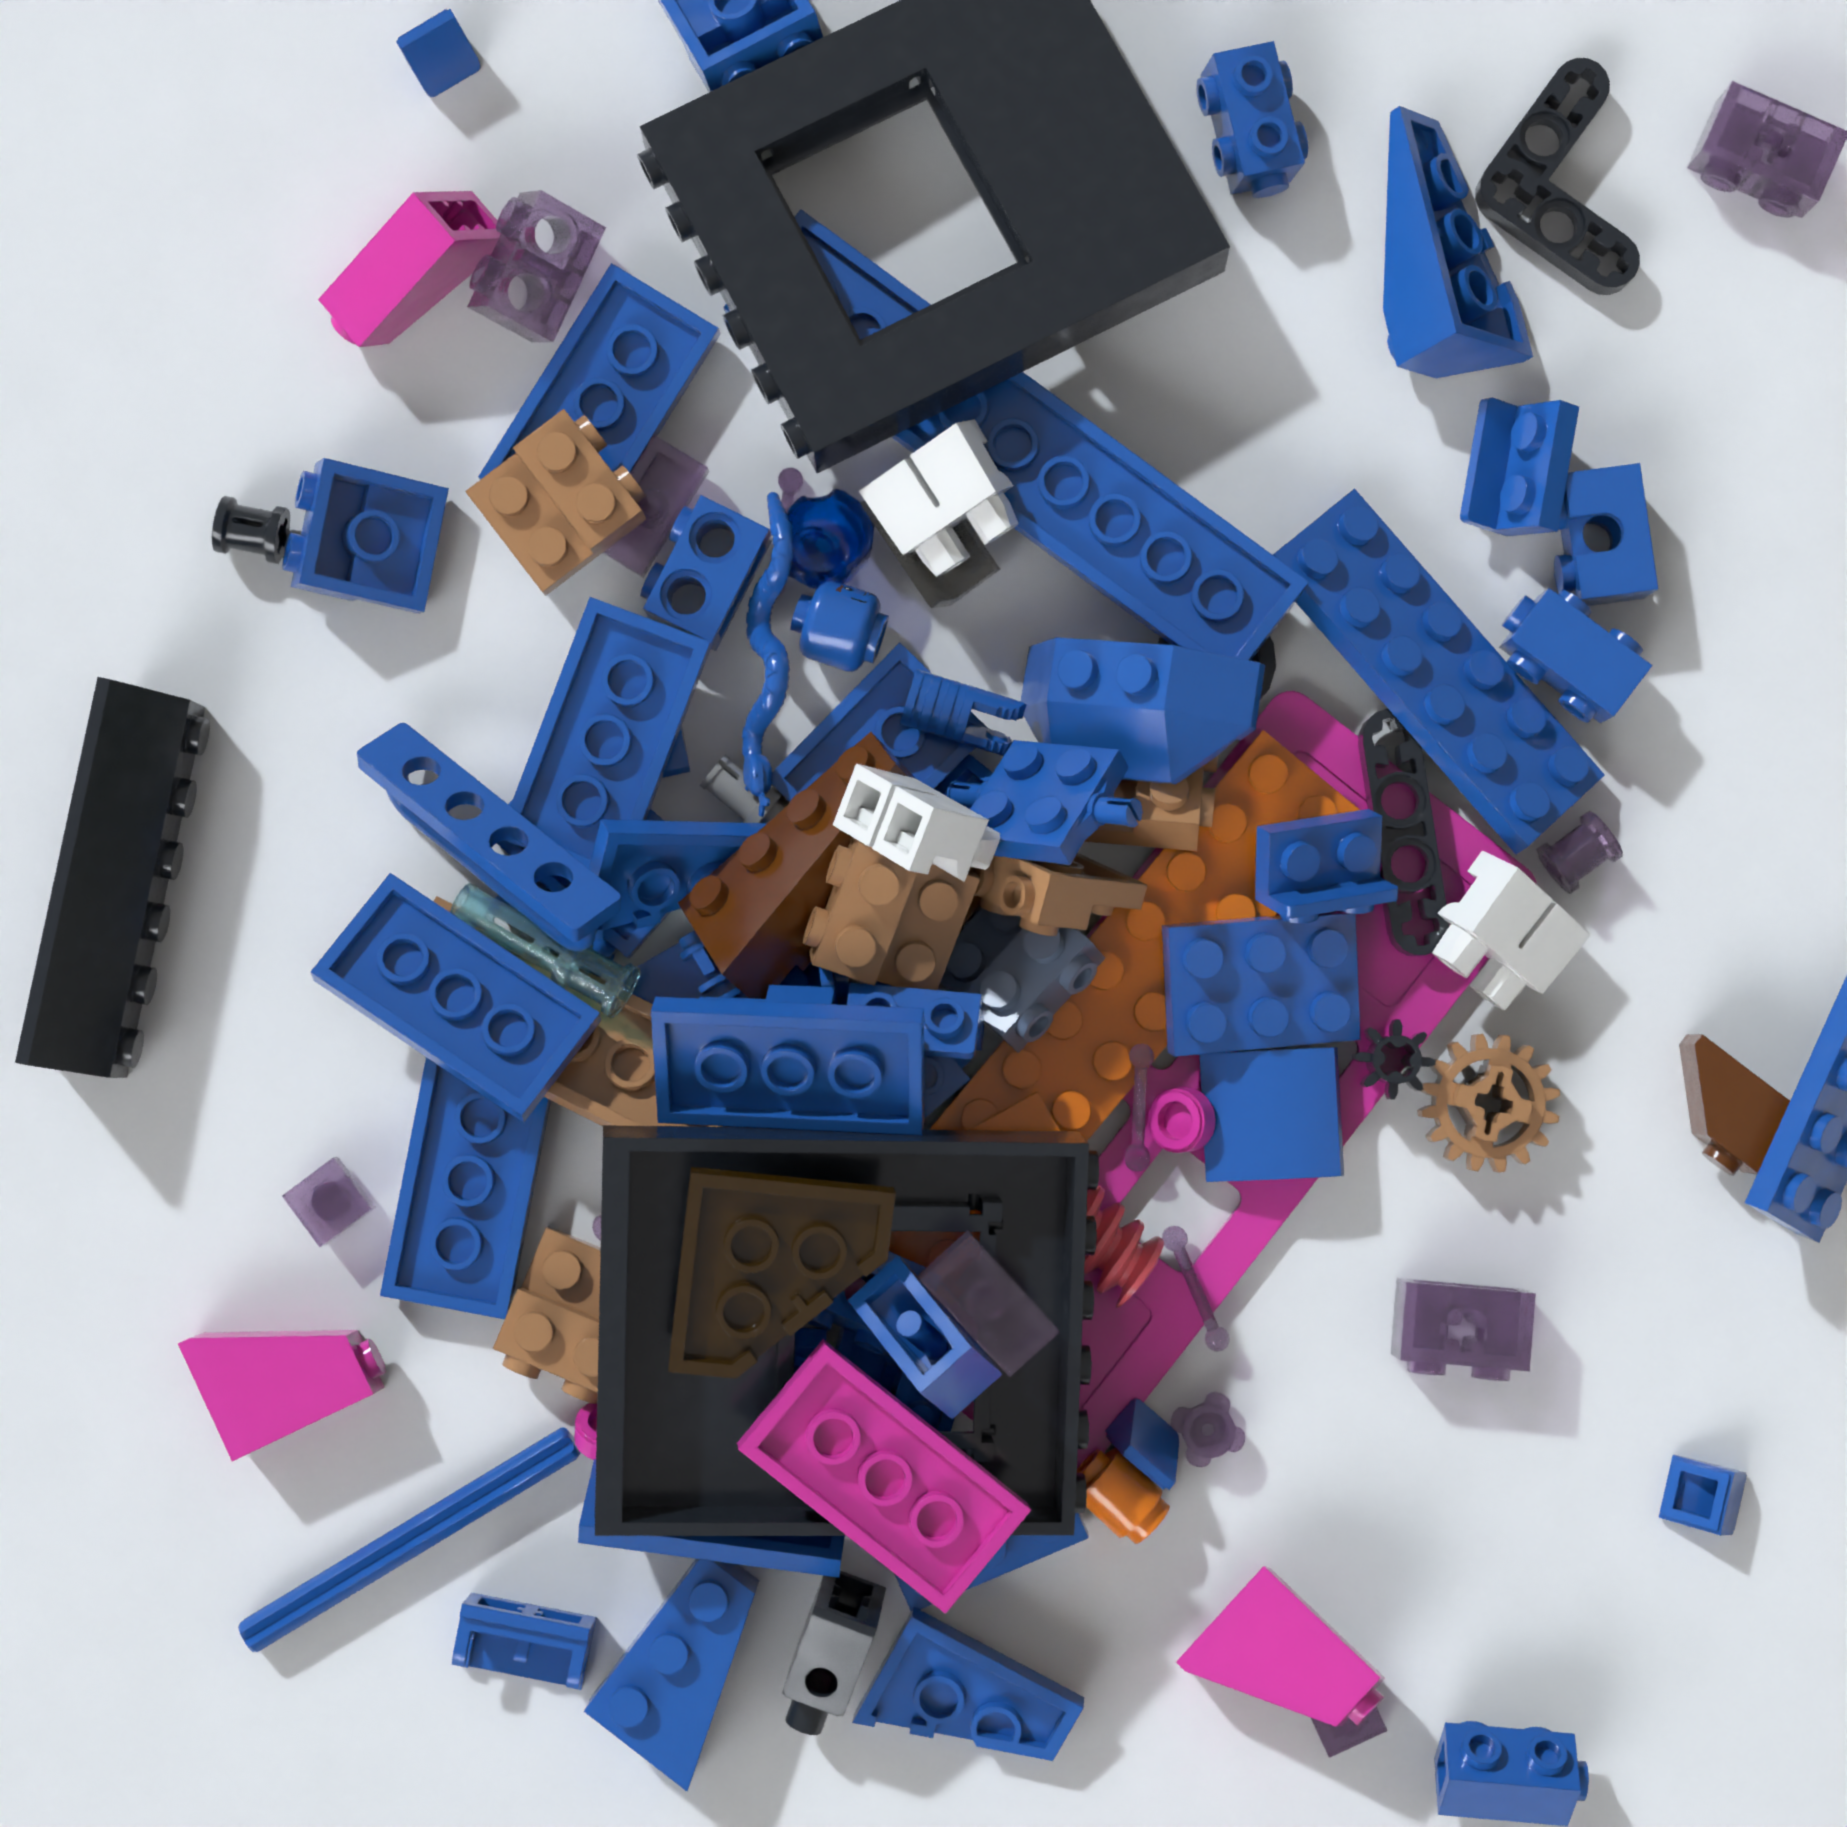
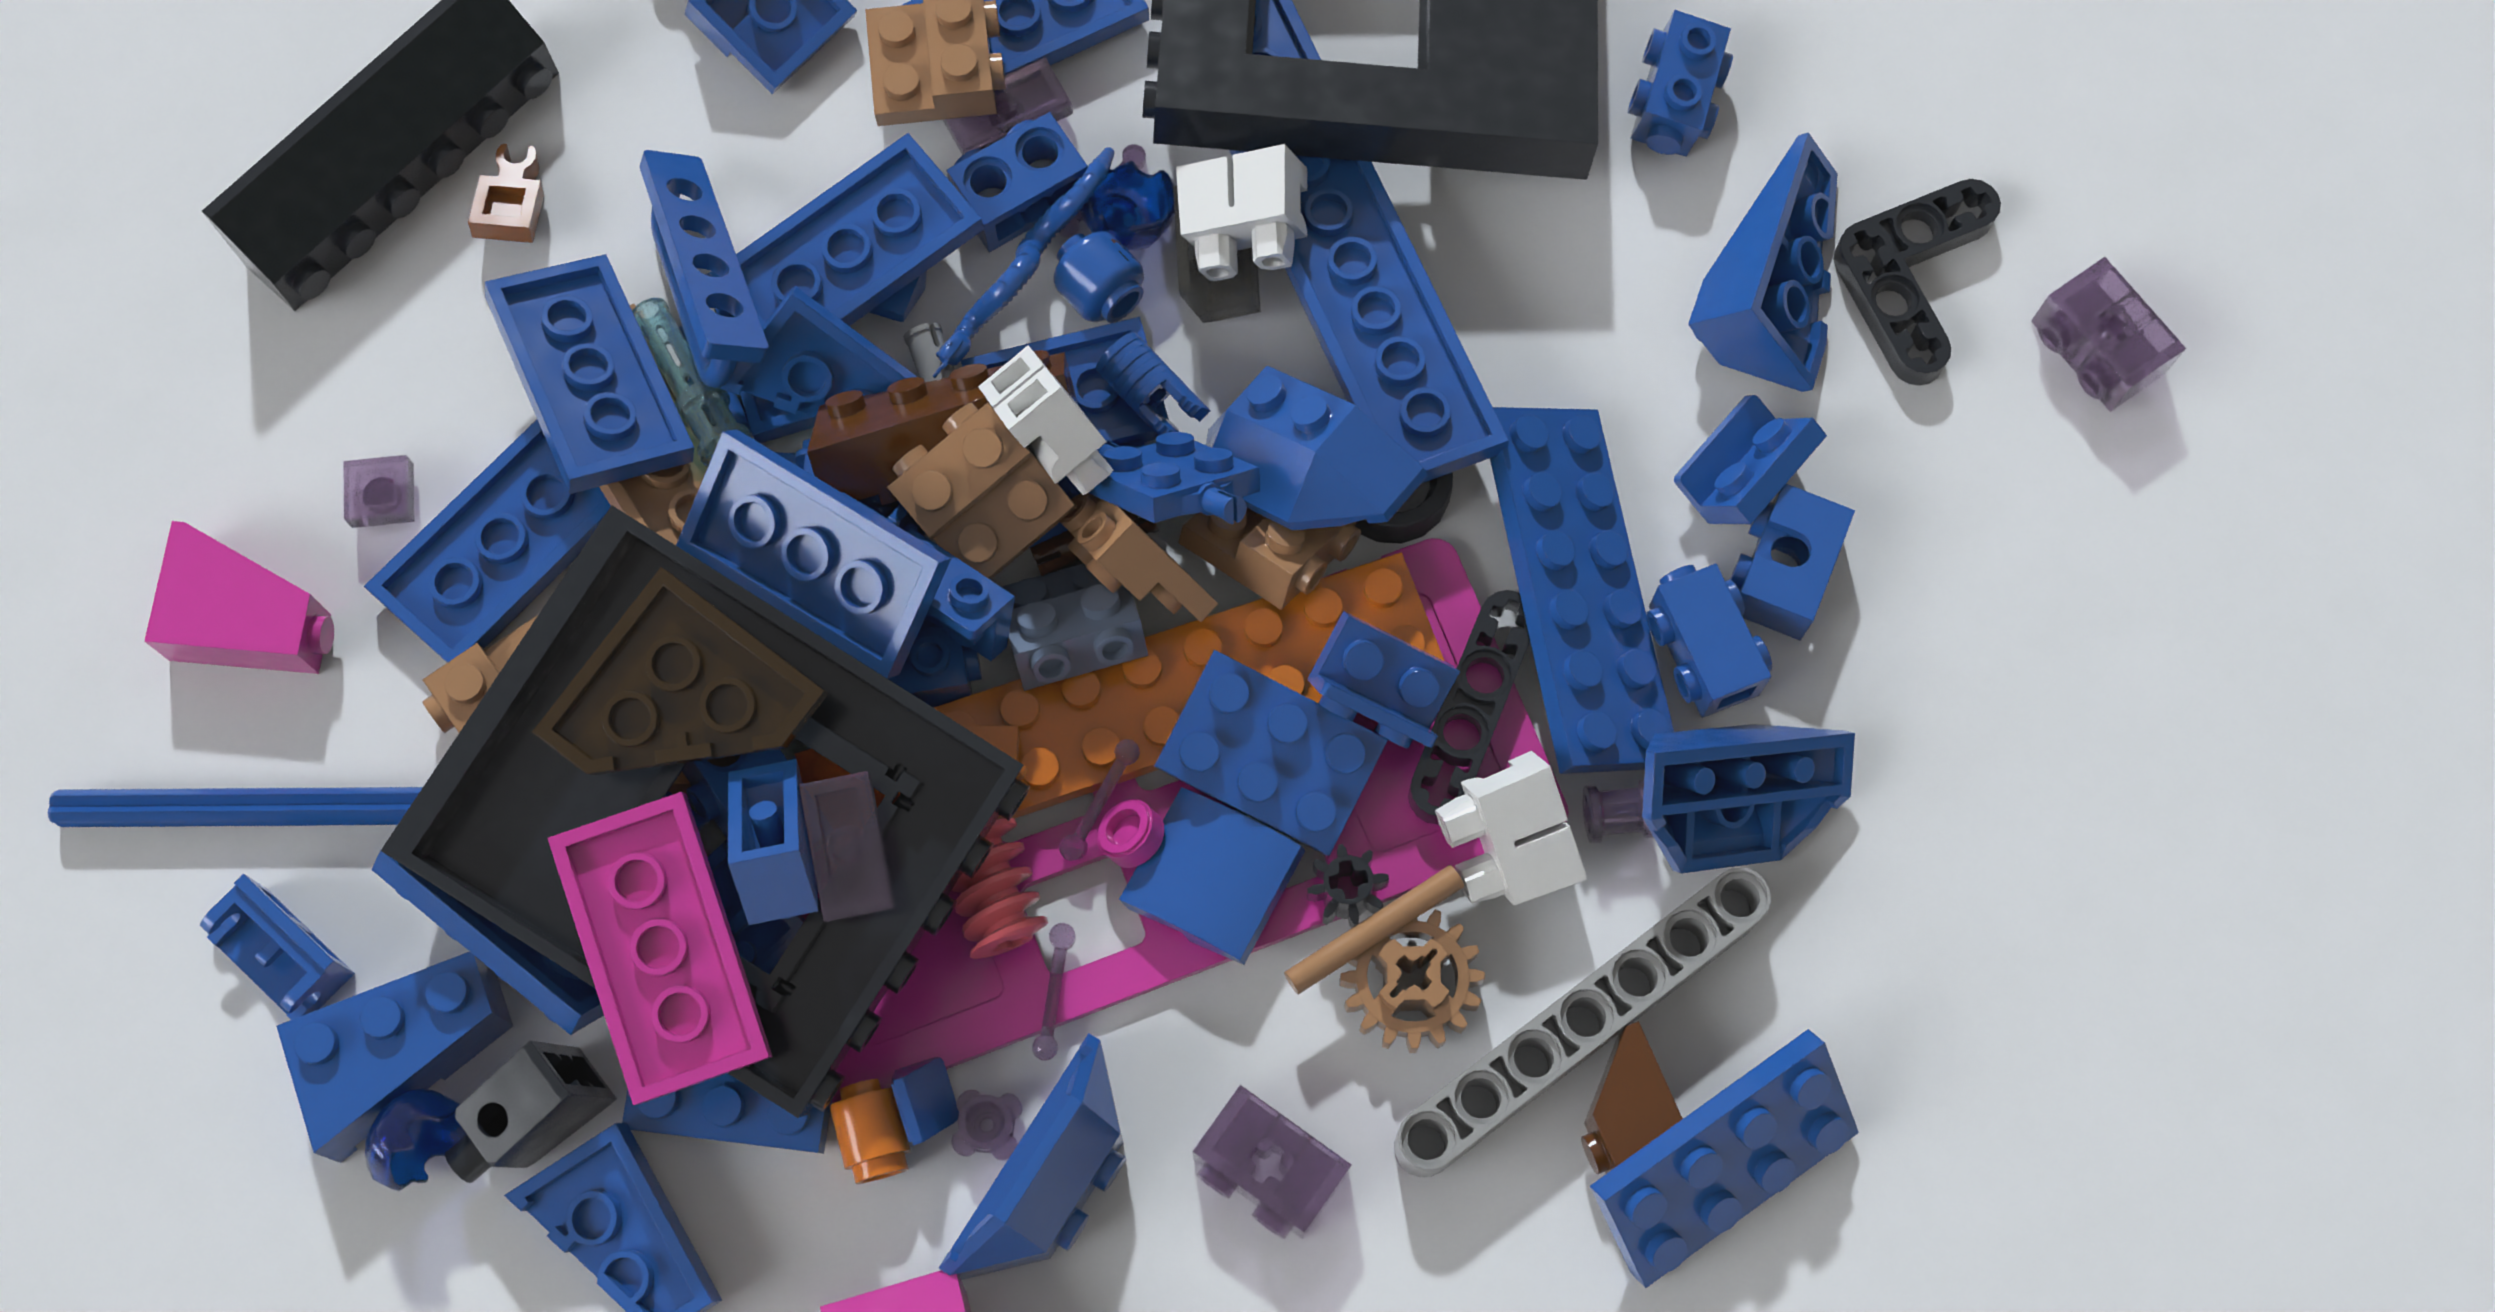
camera: 25 degrees right, 15 degrees down
(254, 867) = (509, 203): none -> plate
(742, 1721) = (408, 1135): none -> clear blue hair
(1287, 1444) = (1048, 1175): none -> blue wedge
(1439, 1085) = (1374, 929): none -> medium nougat bar
(1676, 1036) = (1603, 996): none -> light grey beam
(1677, 776) = (1742, 791): none -> blue wedge

